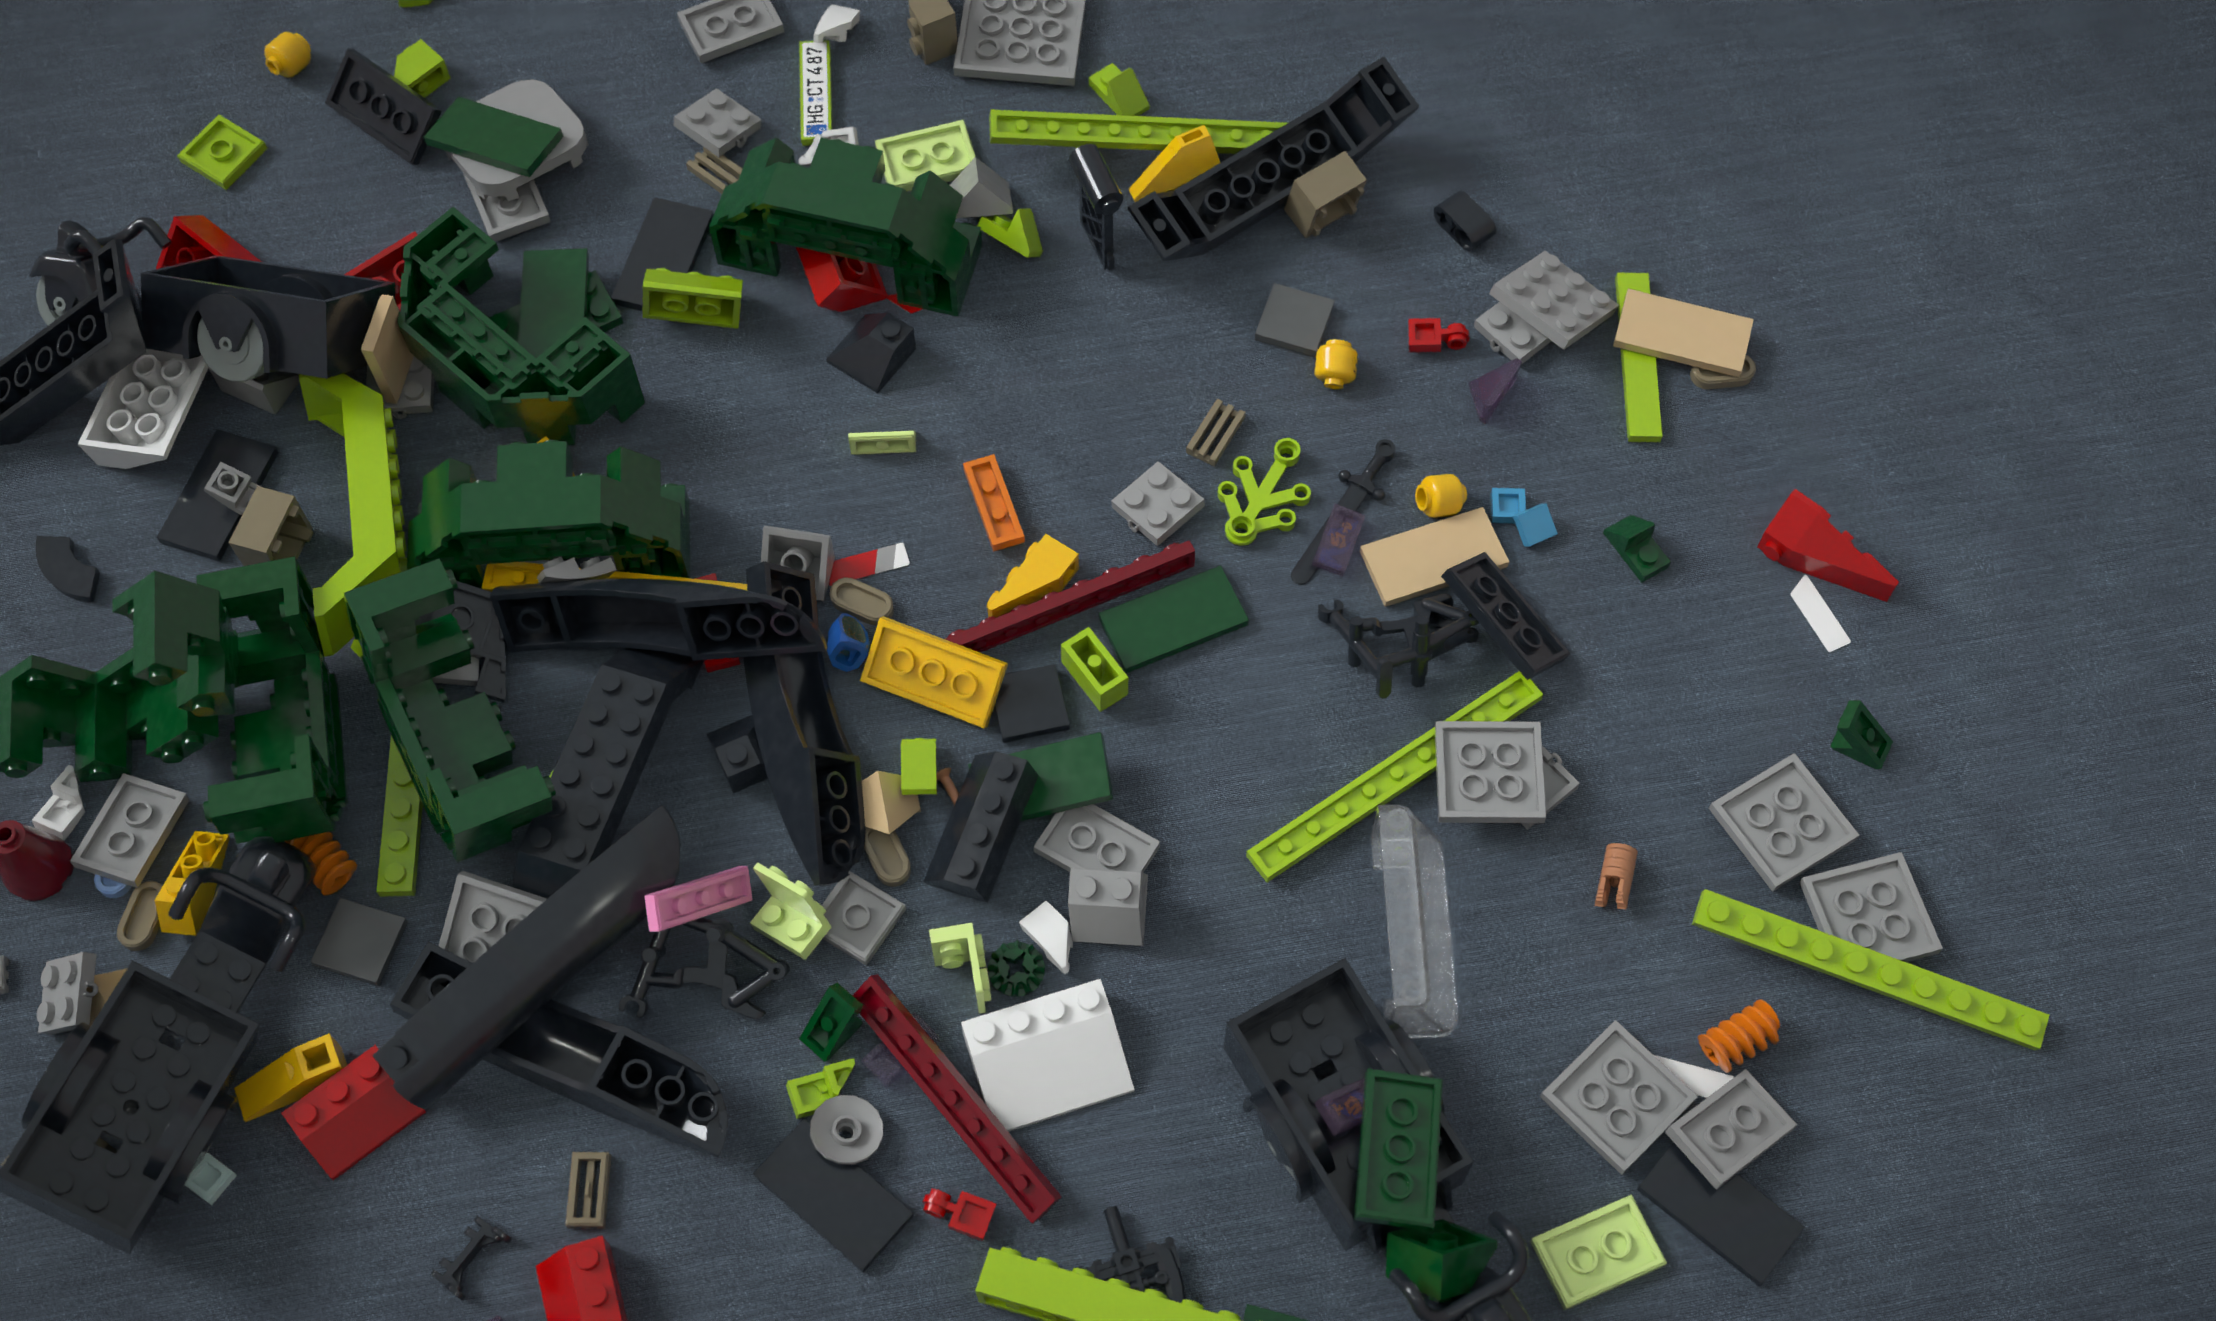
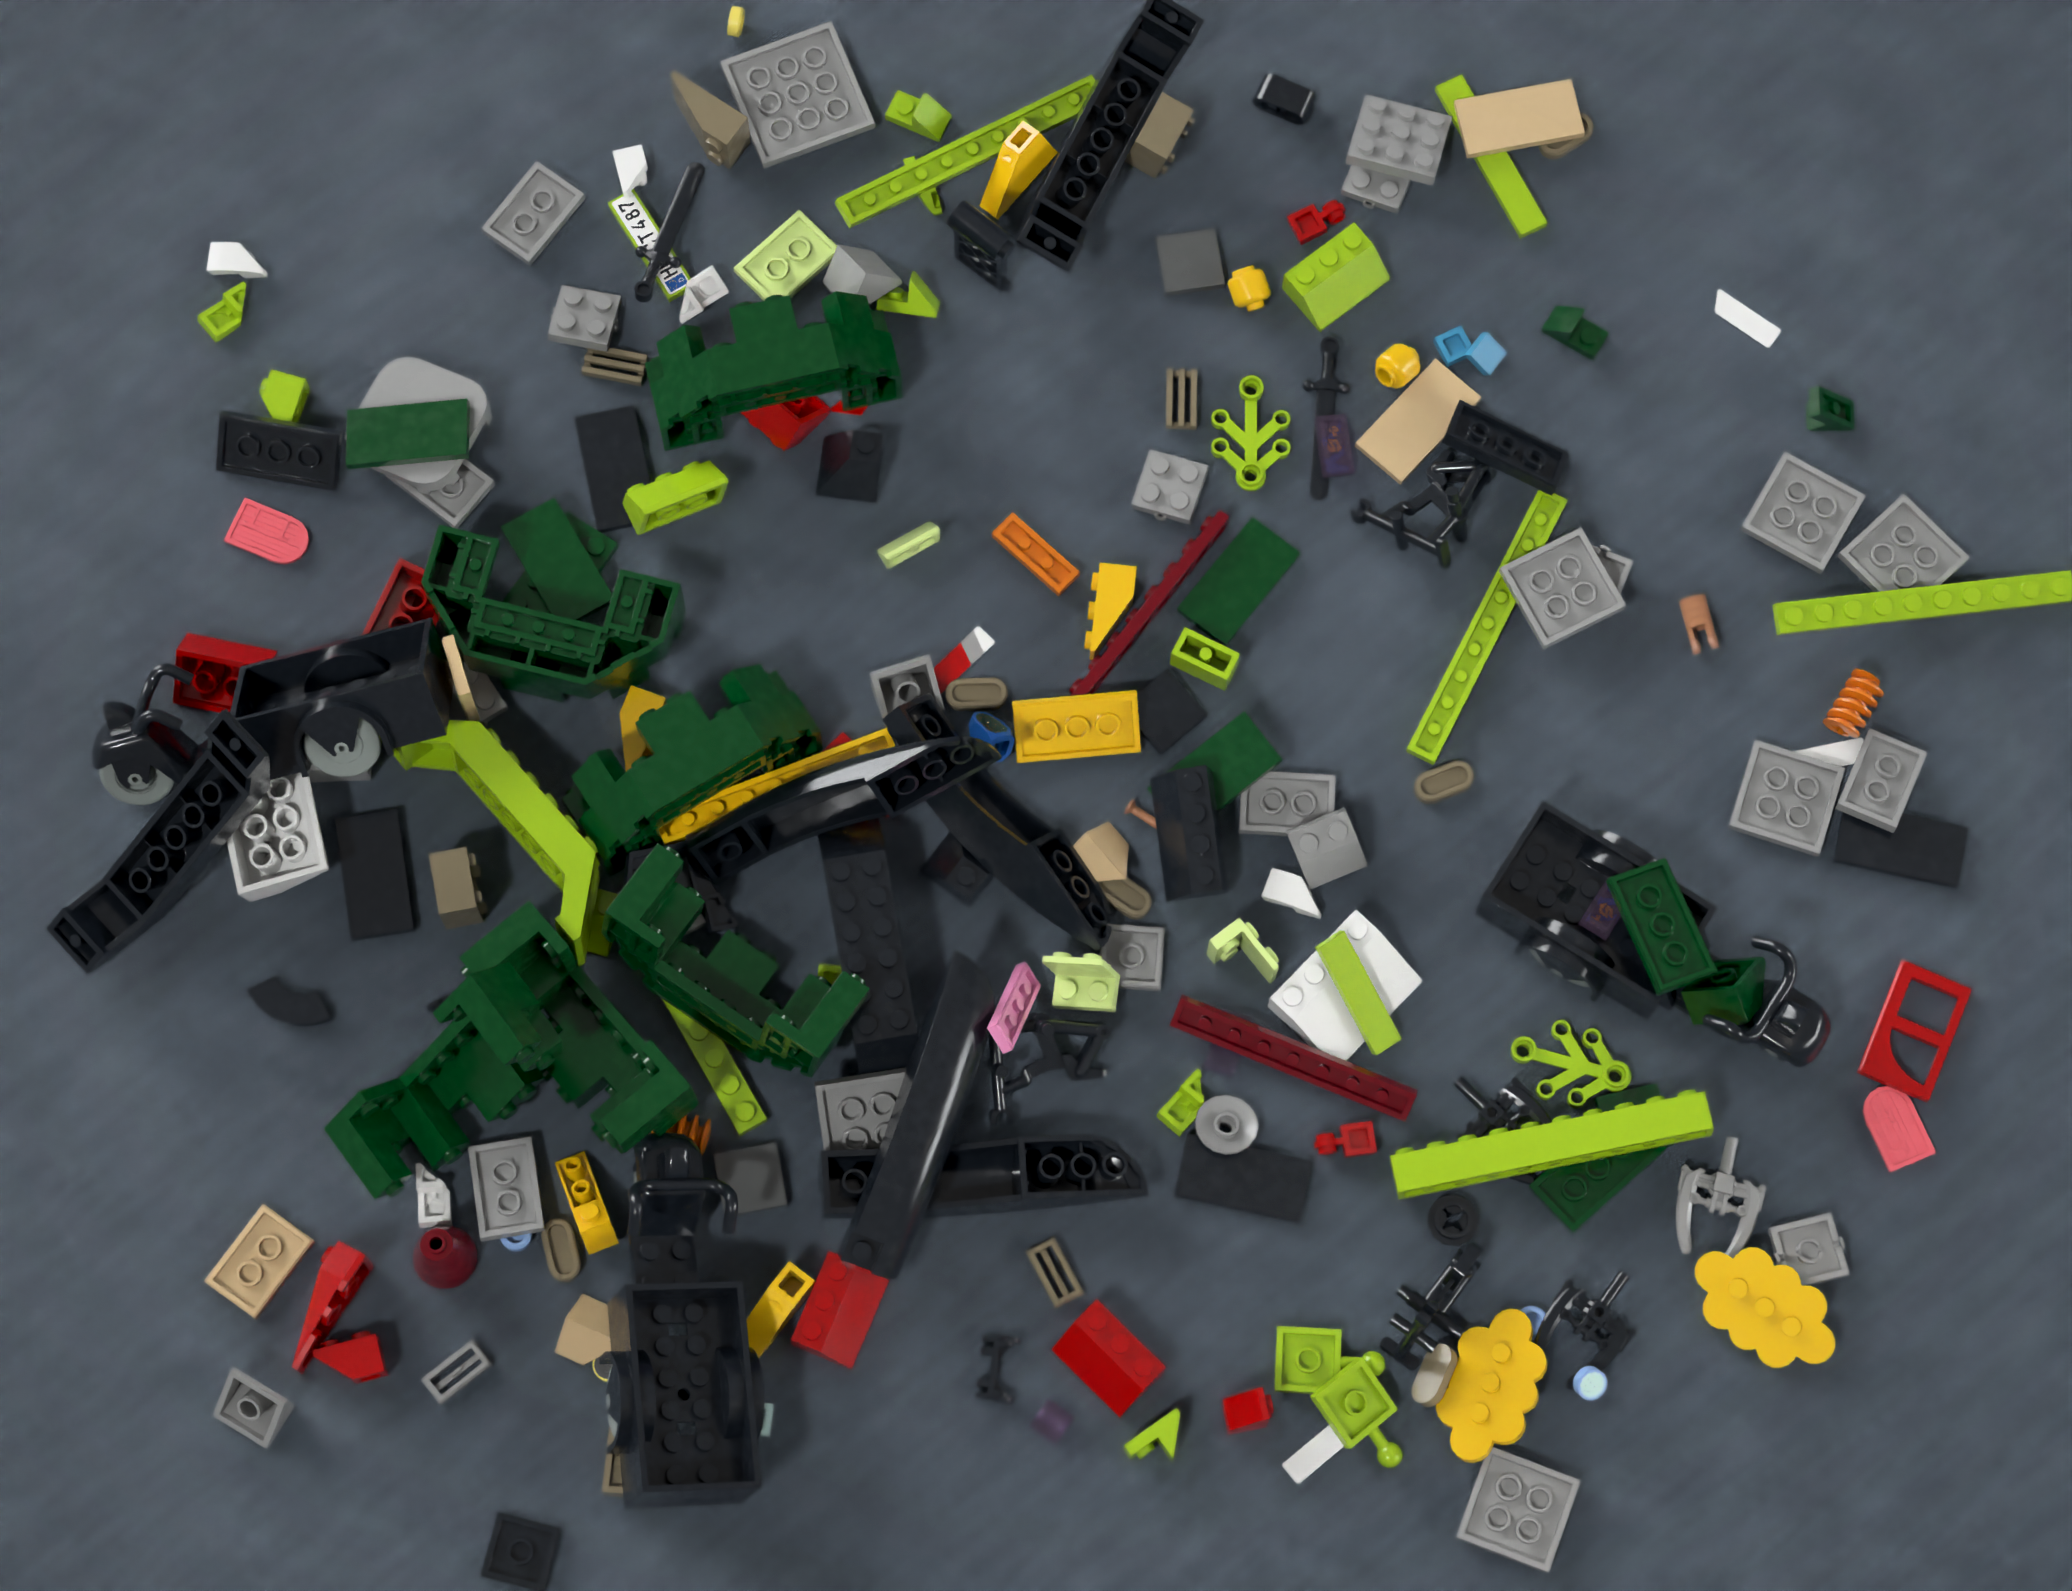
camera: 30 degrees left, 10 degrees up
(64, 993) = (554, 1340): light grey plate -> none
(222, 152) = (154, 562): lime tile -> none
(231, 487) = (402, 865): light grey slope -> none
(287, 54) = (153, 441): yellow head -> none
(333, 173) = (268, 533): none -> coral window
(560, 570) = (744, 792): light grey slope -> none
(814, 101) = (660, 252): none -> black sword
(832, 1022) = (1165, 1049): dark green slope -> none
(918, 766) = (1111, 810): lime slope -> none
(1019, 983) = (1290, 943): dark green gear -> none
(1054, 1064) = (1358, 992): none -> lime tile
(1244, 1259) = (1575, 1065): none -> lime plant
(1267, 904) = (1443, 782): none -> dark tan tile
(1416, 923) = (1570, 737): clear windscreen -> none
(1425, 391) = (1336, 277): none -> lime slope
(1492, 387) = (1388, 244): clear purple slope -> none
(1598, 1252) = (1829, 924): yellowish green tile -> none
(1810, 544) = (1707, 263): red wedge -> none

